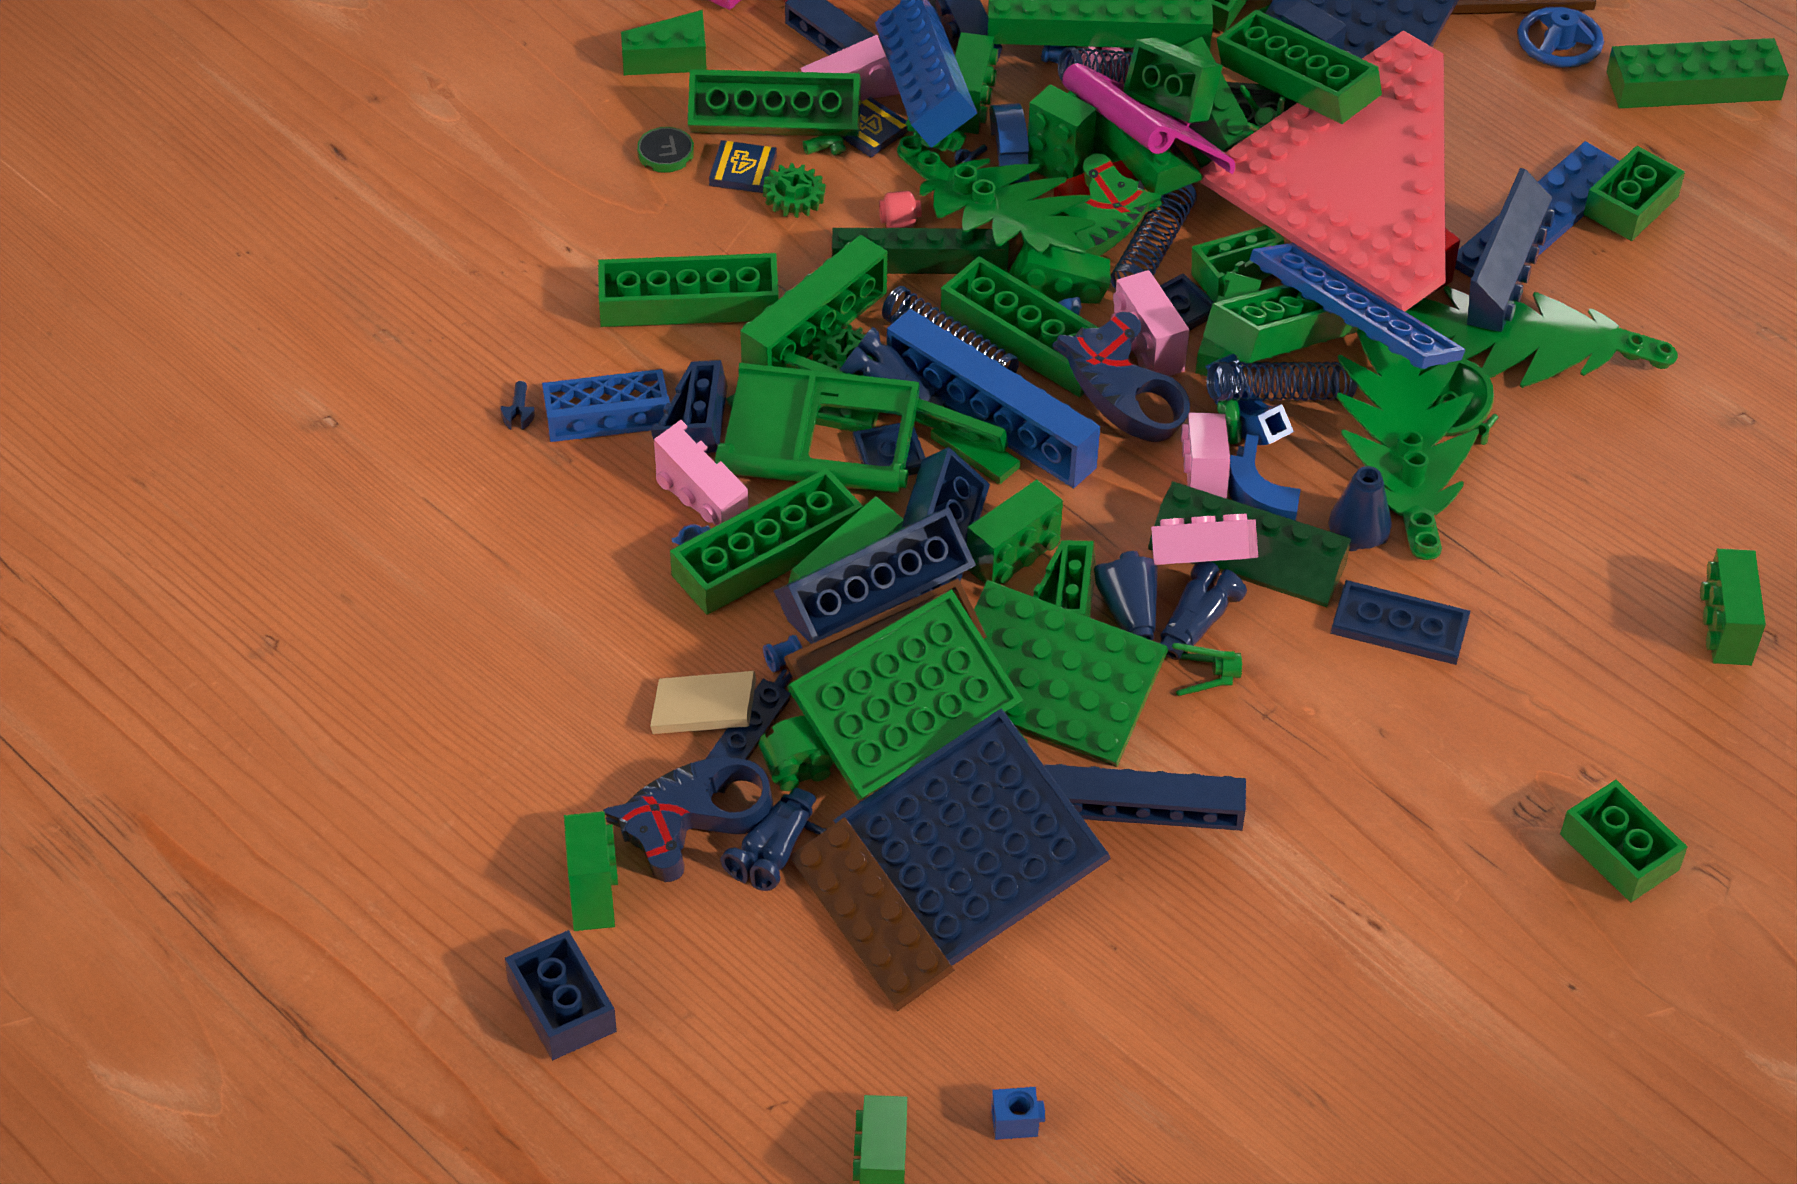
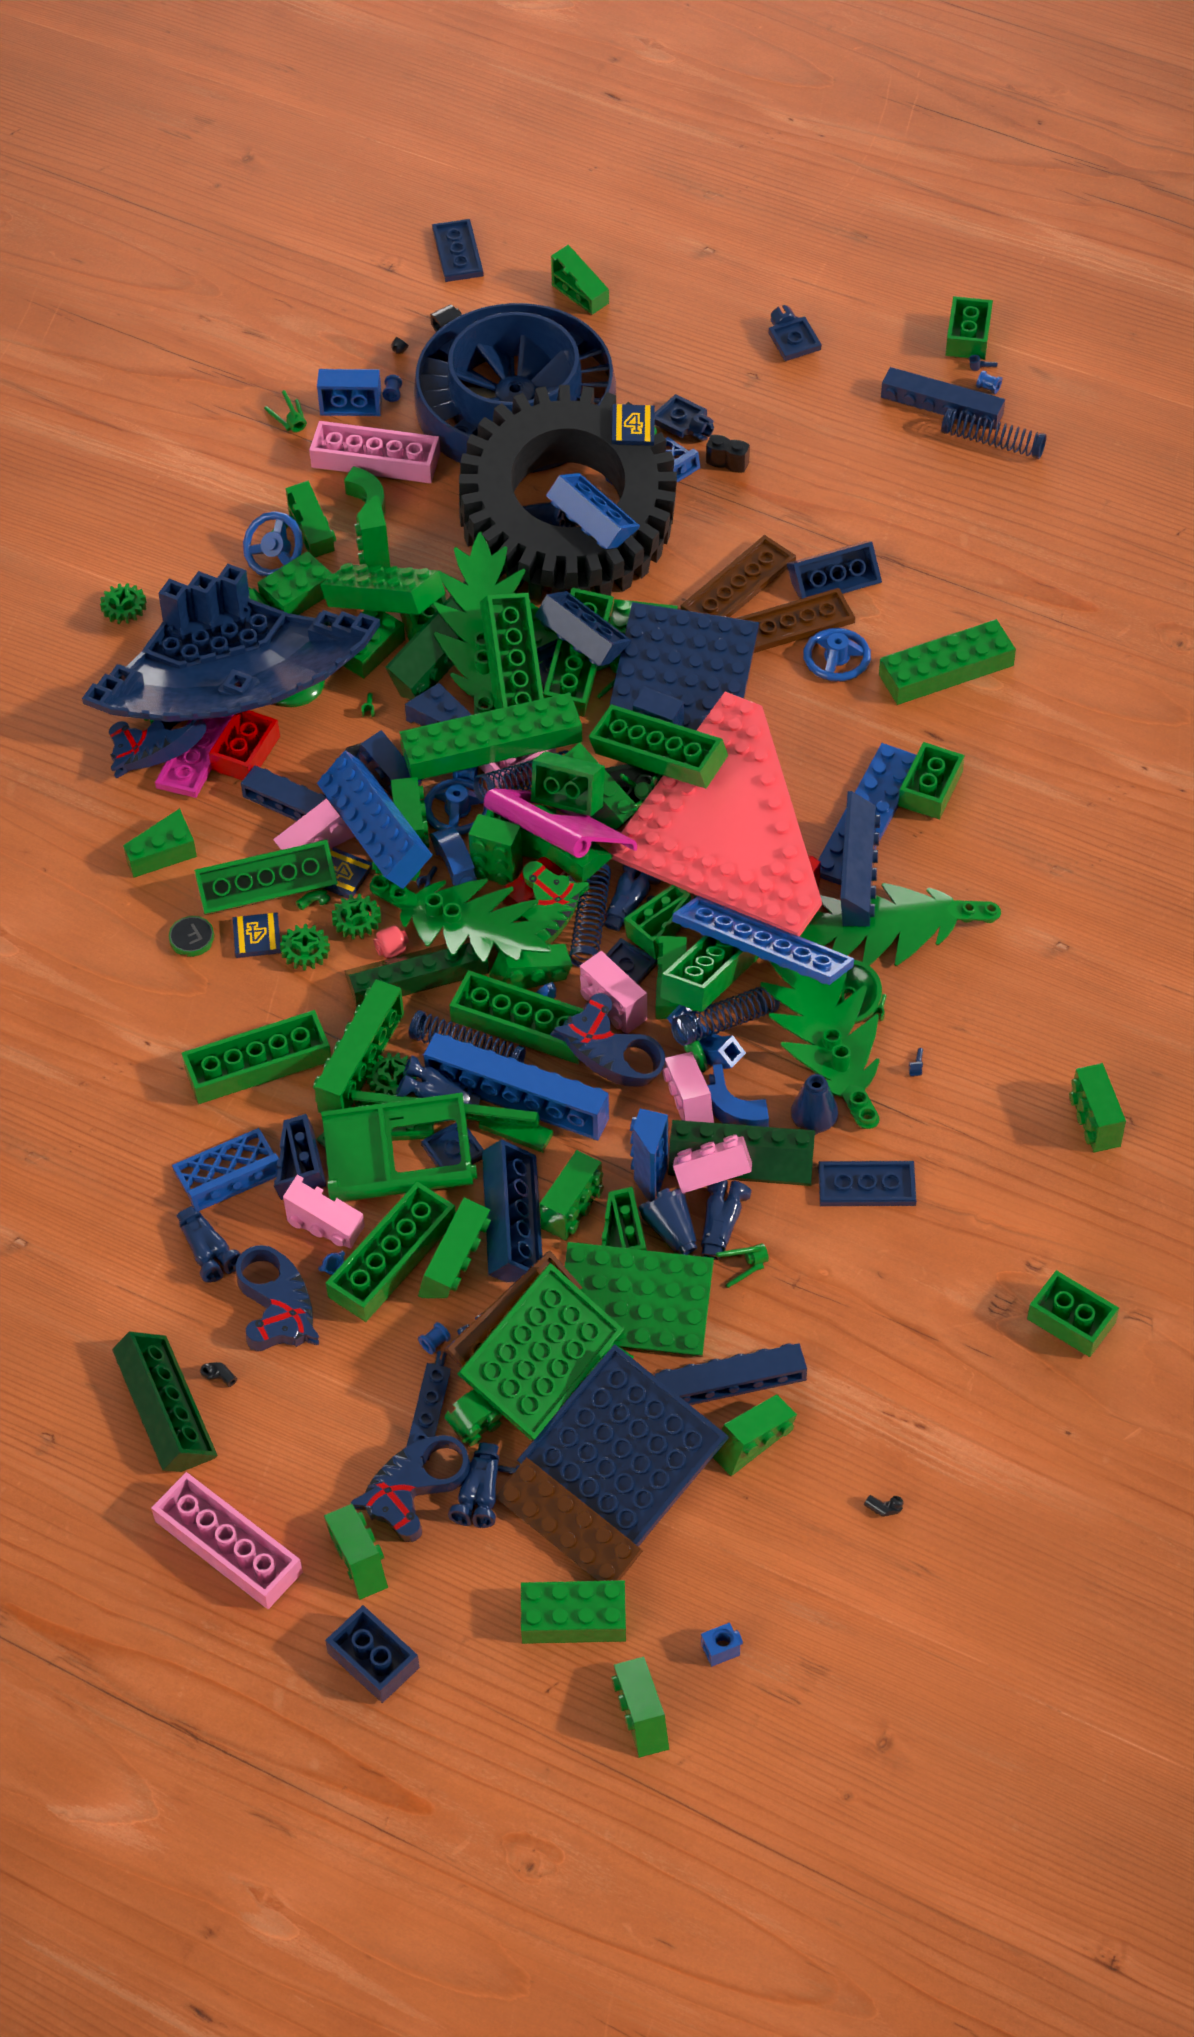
camera: 15 degrees left, 5 degrees up
(423, 636) = (164, 1401): none -> dark green slope
(434, 812) = (227, 1540): none -> bright pink brick
(504, 621) = (218, 1371): none -> black arm
(518, 408) = (161, 1190): dark blue bar -> none
(548, 478) = (207, 1245): none -> dark blue piece
(616, 562) = (287, 1302): none -> dark blue animal
(703, 702) = (391, 1395): tan tile -> none
(837, 1018) = (573, 1612): none -> green brick
(868, 173) = (356, 916): none -> green gear
(876, 577) = (488, 1264): dark blue slope -> none
(1035, 77) = (457, 802): none -> blue piece
(1130, 499) = (649, 1151): none -> blue slope
(1148, 870) = (754, 1433): none -> green wedge
(1214, 221) = (628, 896): none -> dark blue piece
(1294, 1011) = (886, 1508): none -> black arm
(1509, 506) = (915, 1068): none -> dark blue hand

